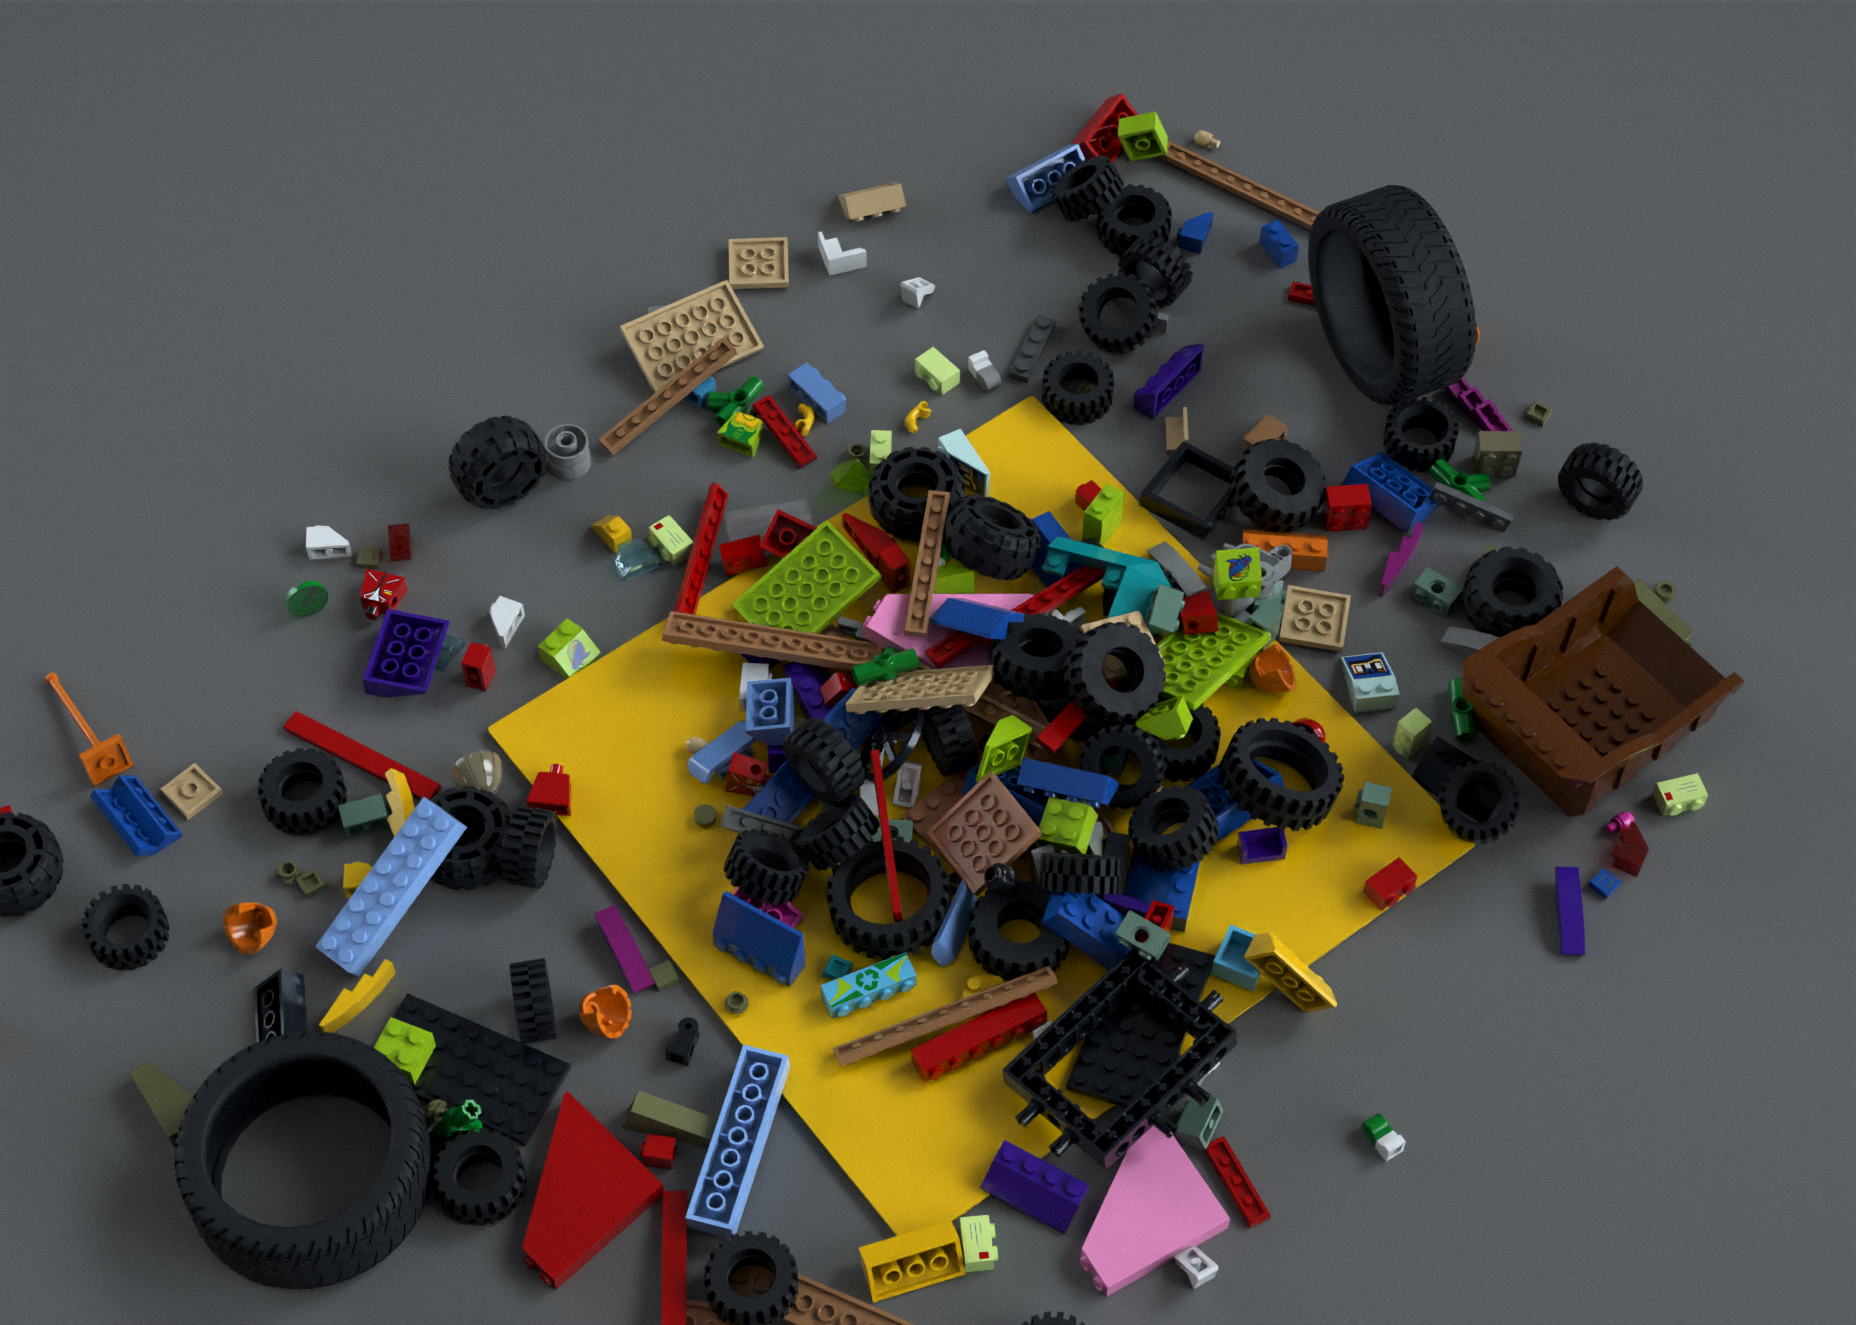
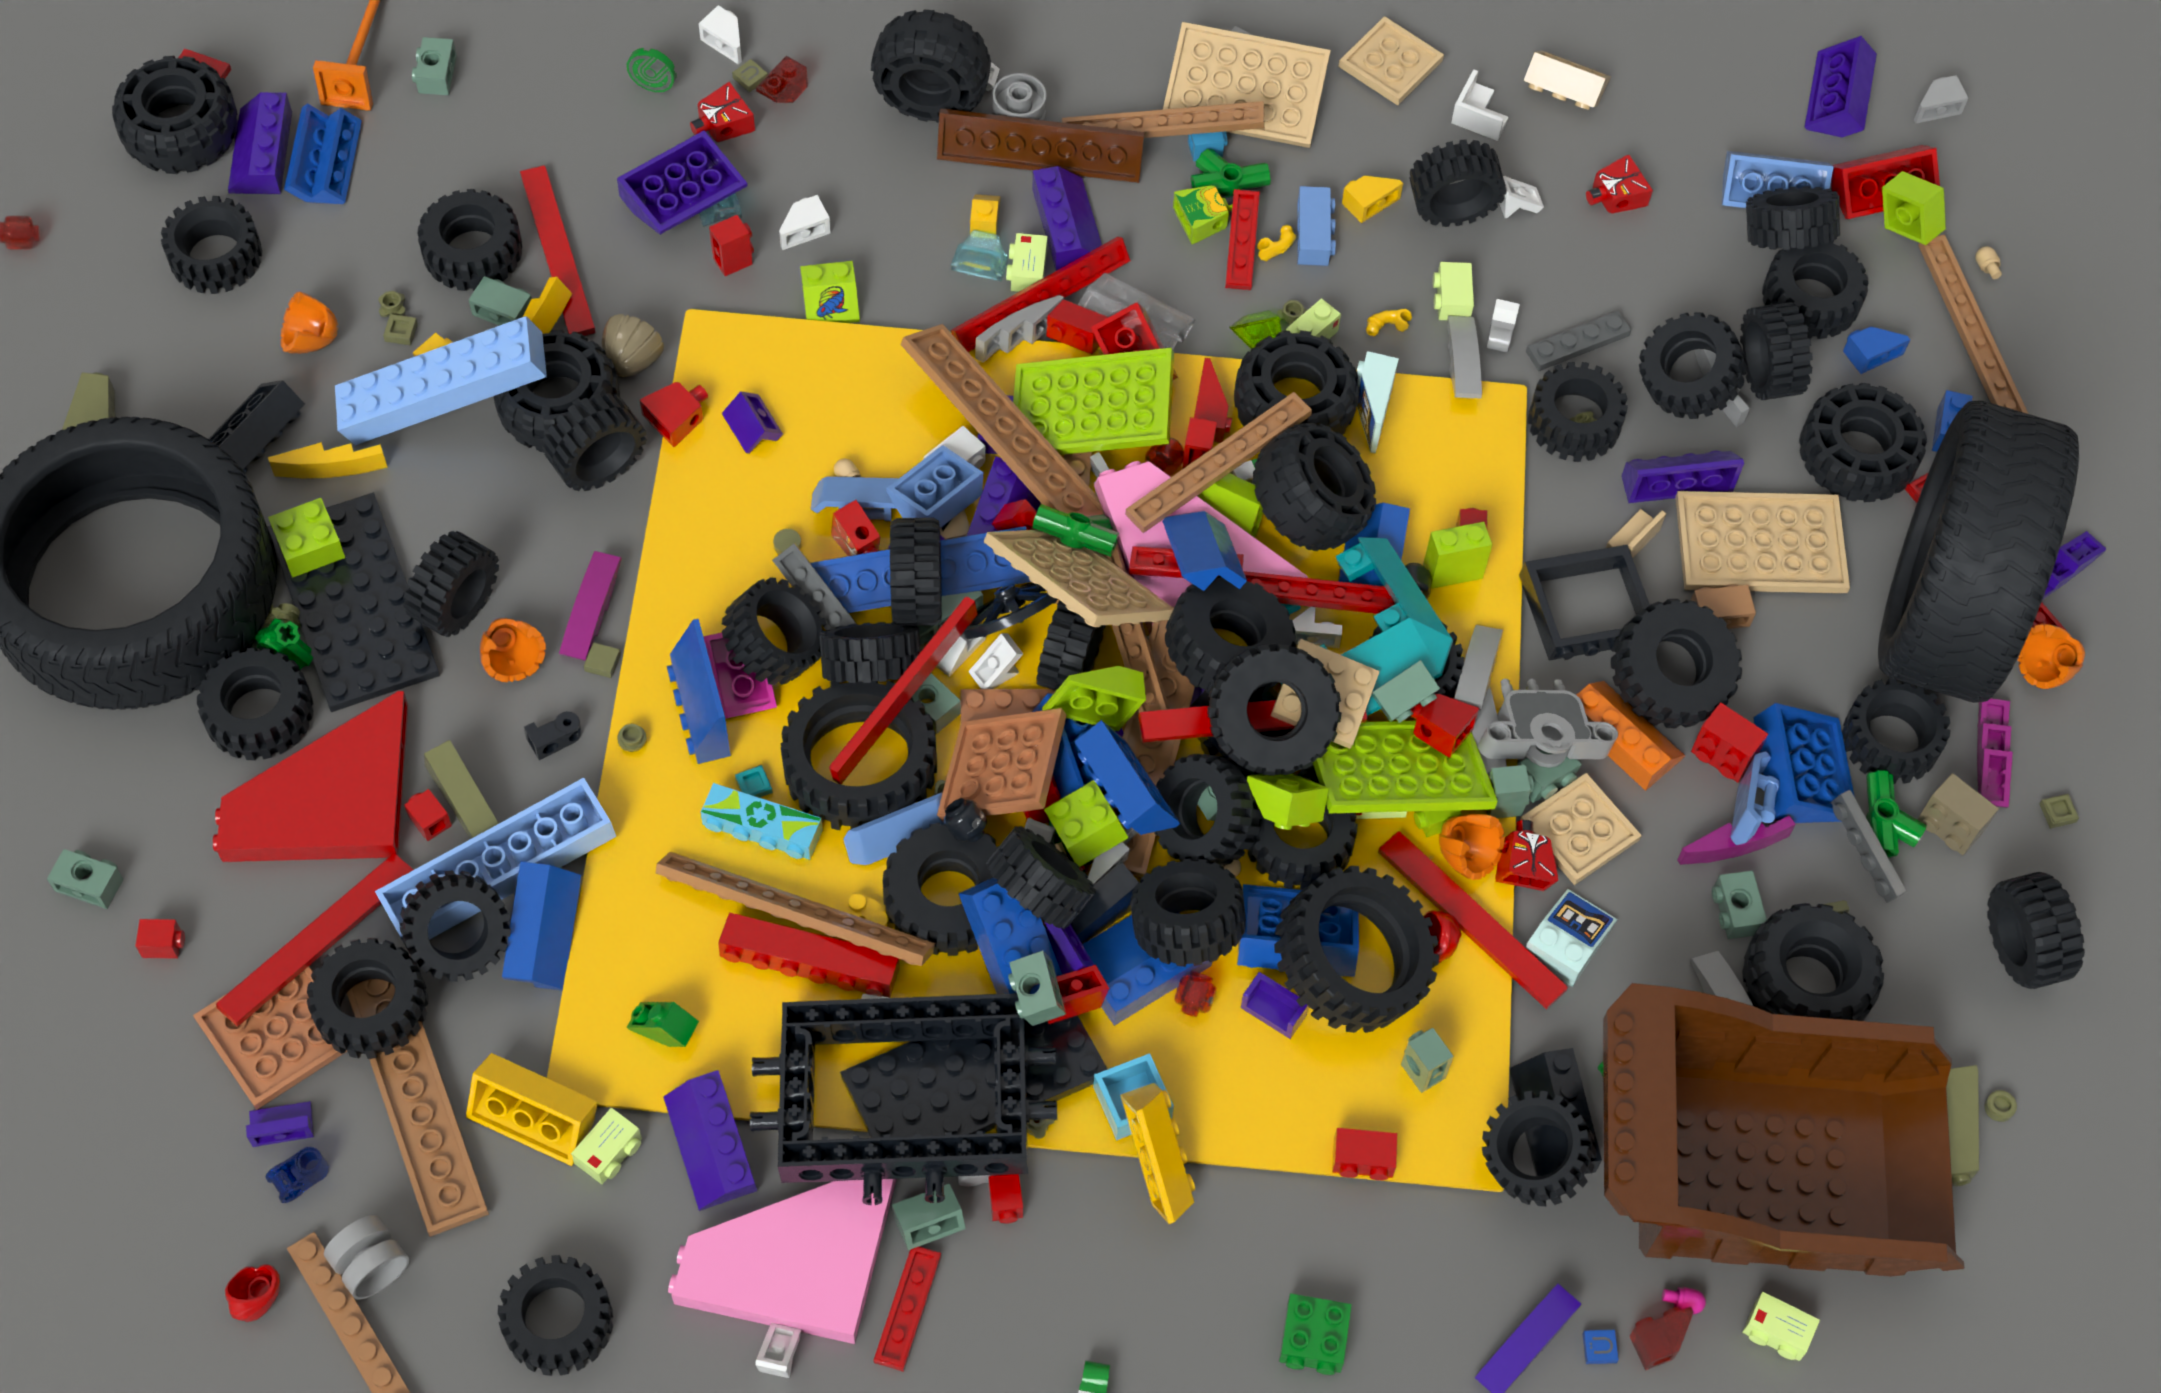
camera: 40 degrees right, 5 degrees up
(86, 842) = (261, 145): none -> dark purple slope
(148, 693) = (434, 66): none -> sand green brick
(191, 791) = (390, 170): tan tile -> none
(605, 465) = (1039, 145): none -> reddish brown plate
(605, 762) = (751, 420): none -> dark purple panel
(662, 497) = (1065, 214): none -> dark purple slope
(710, 579) = (1022, 325): none -> light grey slope
(738, 1198) = (443, 891): none -> black tyre
(805, 1152) = (542, 925): none -> blue slope
(830, 351) = (1370, 195): none -> yellow slope
(877, 591) = (1166, 456): none -> clear red head
(882, 304) = (1459, 201): none -> black tyre
(936, 1145) = (663, 1023): none -> green slope
(967, 242) = (1620, 187): none -> red torso
(984, 404) = (1464, 357): none -> light grey slope
(1029, 97) = (1841, 88): none -> dark purple slope
(1090, 64) = (1943, 99): none -> light grey slope
(1213, 875) = (1195, 994): none -> clear red head
(1228, 1075) = (1005, 1198): none -> red brick
(1237, 573) = (1515, 713): lime slope -> none
(1246, 386) = (1762, 541): none -> tan plate
(1251, 268) = (1867, 411): none -> black tyre
(1308, 656) = (1527, 859): none -> red torso
(1323, 713) = (1473, 920): none -> red tile
(1393, 529) = (1747, 813): none -> medium blue piece
(1411, 733) = (1549, 1023): yellowish green brick -> none
(1462, 1002) = (1315, 1334): none -> green brick

